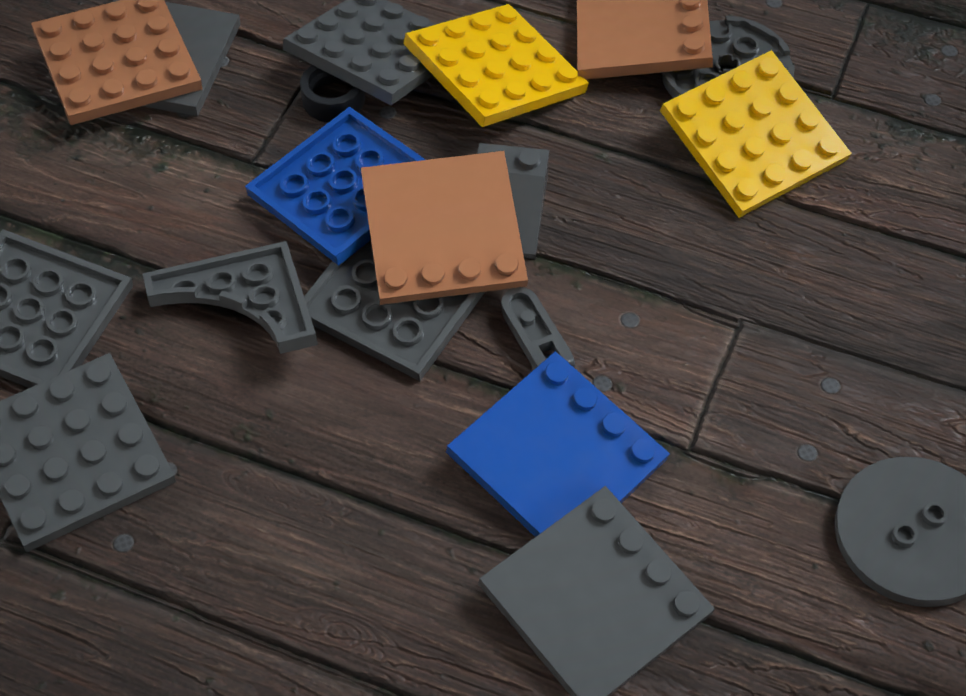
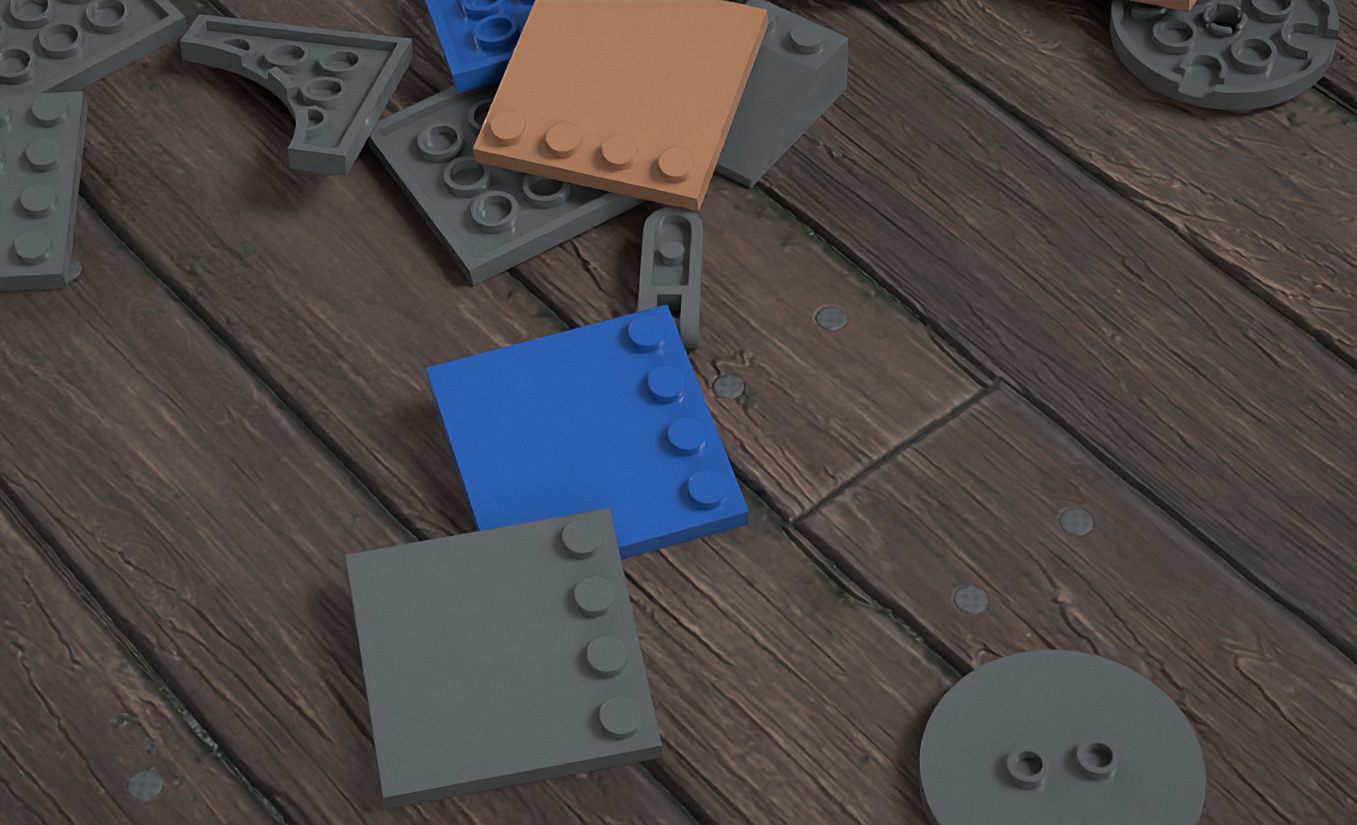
camera: 30 degrees right, 5 degrees down
(755, 133) = (1198, 126): yellow plate -> none

